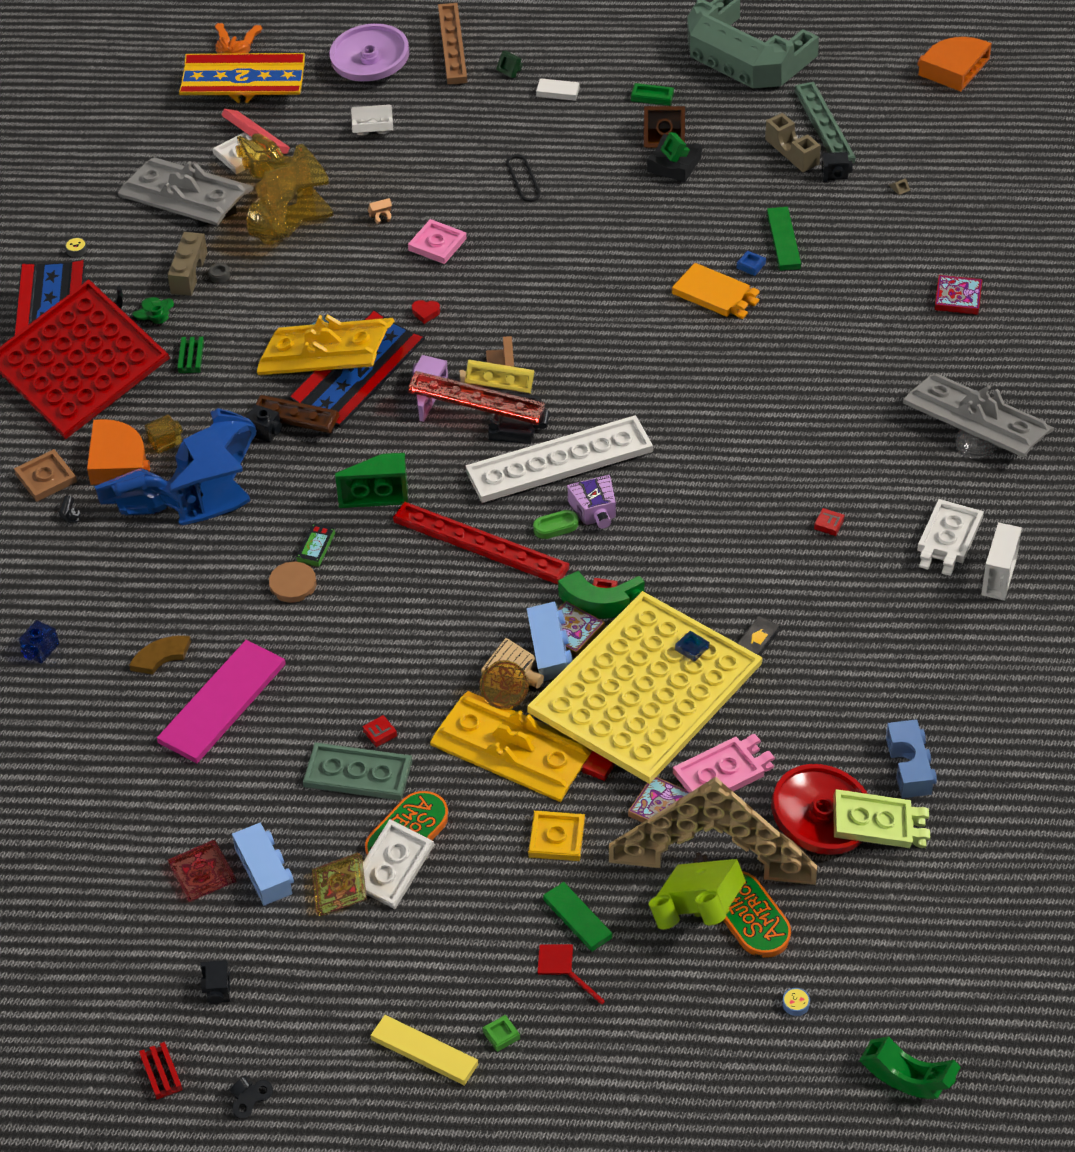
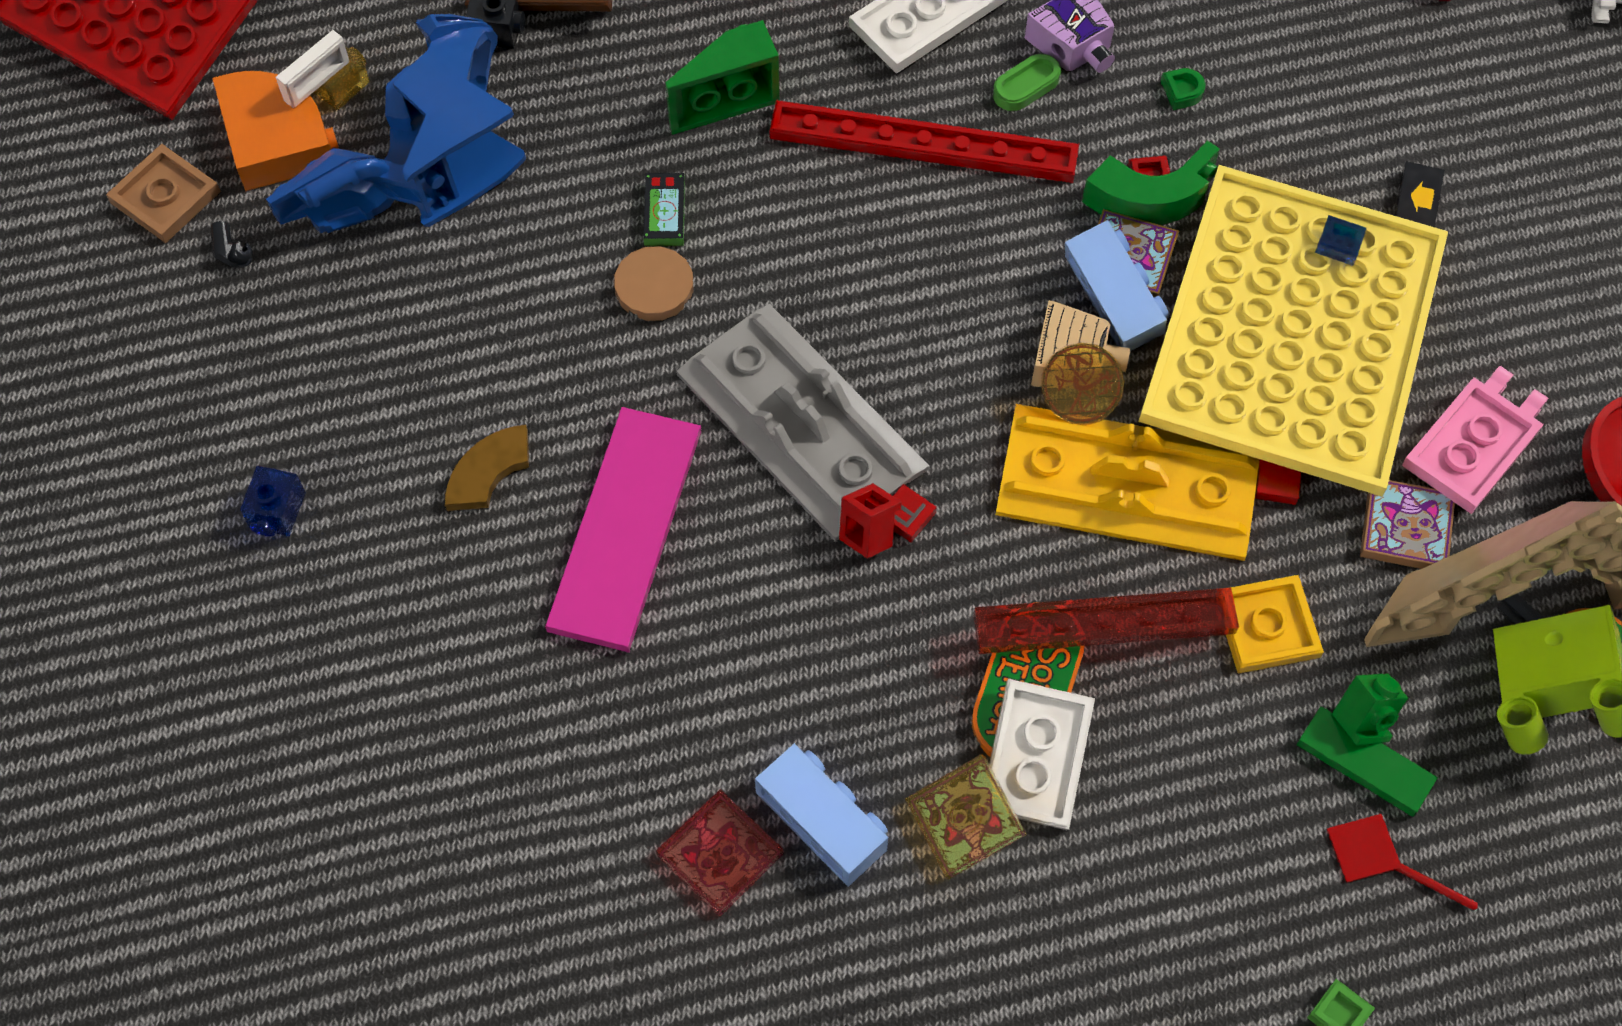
camera: 20 degrees left, 15 degrees up
(147, 425) = (312, 69): none -> white tile
(343, 670) = (798, 416): none -> light grey hinge
(352, 725) = (868, 520): none -> red brick
(357, 771) = (899, 594): sand green tile -> none
(460, 807) = (1105, 620): none -> clear red plate
(587, 885) = (1370, 708): none -> green brick
(648, 547) = (1183, 87): none -> green tile

